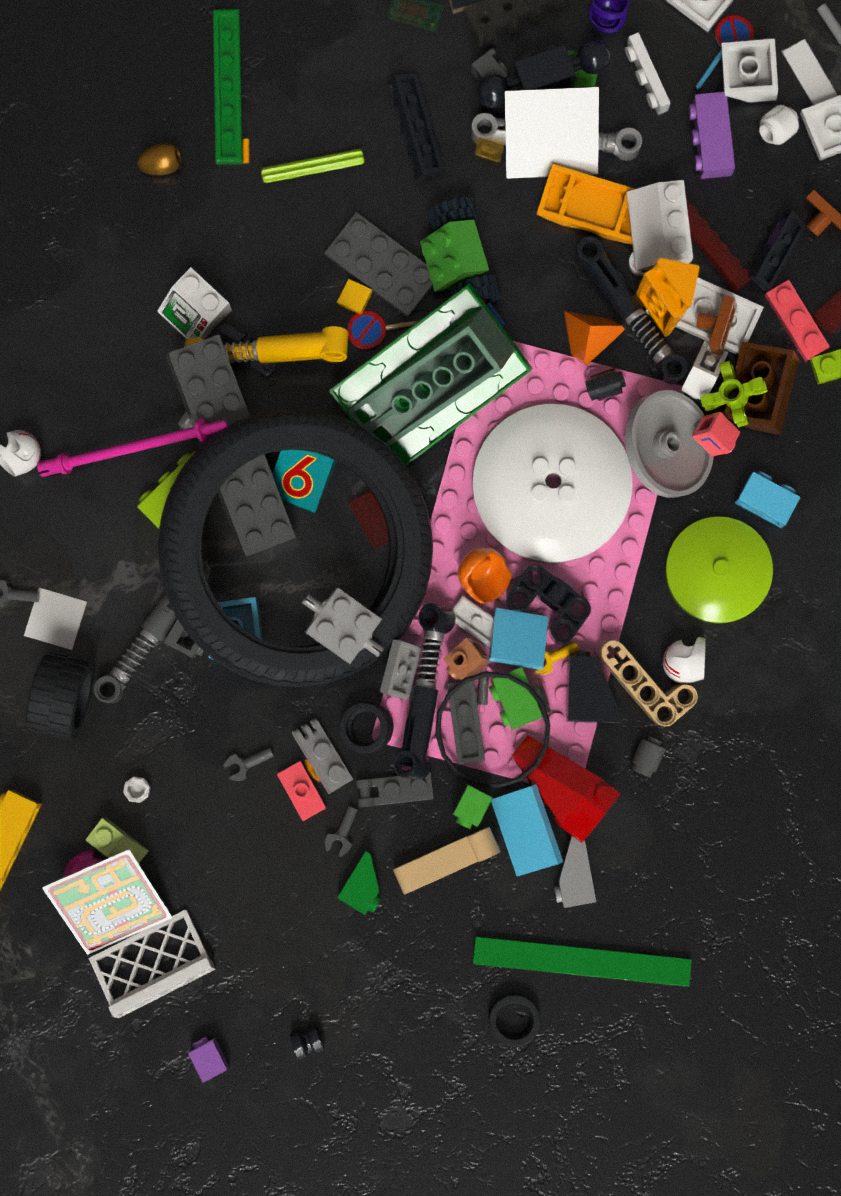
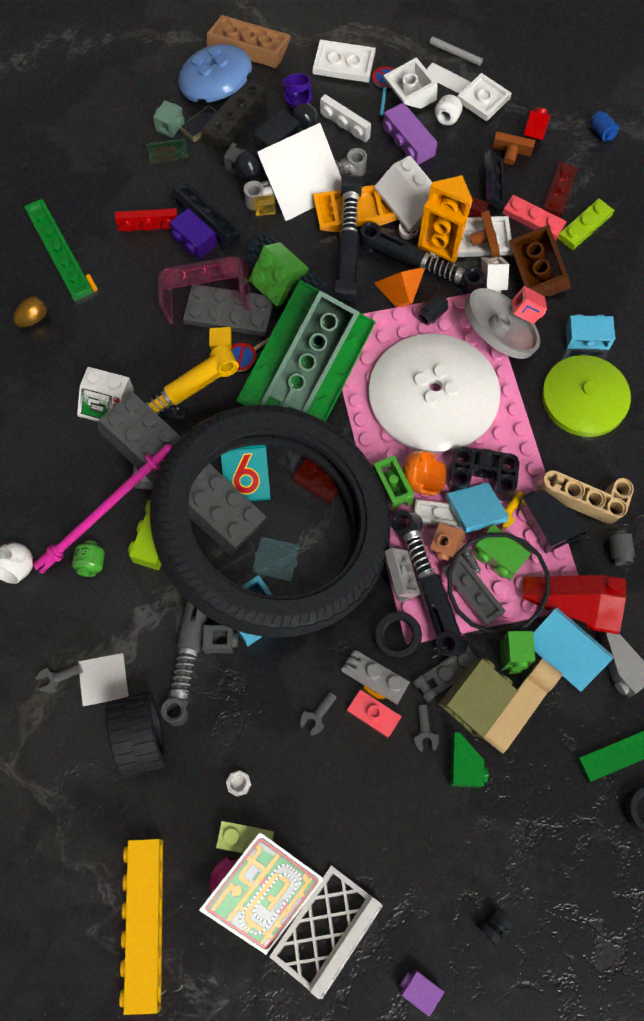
camera: 30 degrees left, 15 degrees down
(95, 486) = (88, 559): none -> bright green head
(287, 582) = (276, 559): none -> clear light blue piece
(312, 165) = (144, 270): lime axle -> none
(342, 625) = (341, 554): light grey plate -> none
(344, 102) = (145, 219): none -> red plate
(388, 147) = (193, 234): none -> dark purple brick
(405, 217) = (199, 273): none -> clear pink windscreen
(409, 829) = (478, 697): none -> olive brick
(444, 568) = (394, 483): none -> bright green brick
(558, 248) = (348, 240): none -> black piece
(685, 663) = (606, 465): white helmet -> none
(714, 400) = (523, 263): lime pin -> none

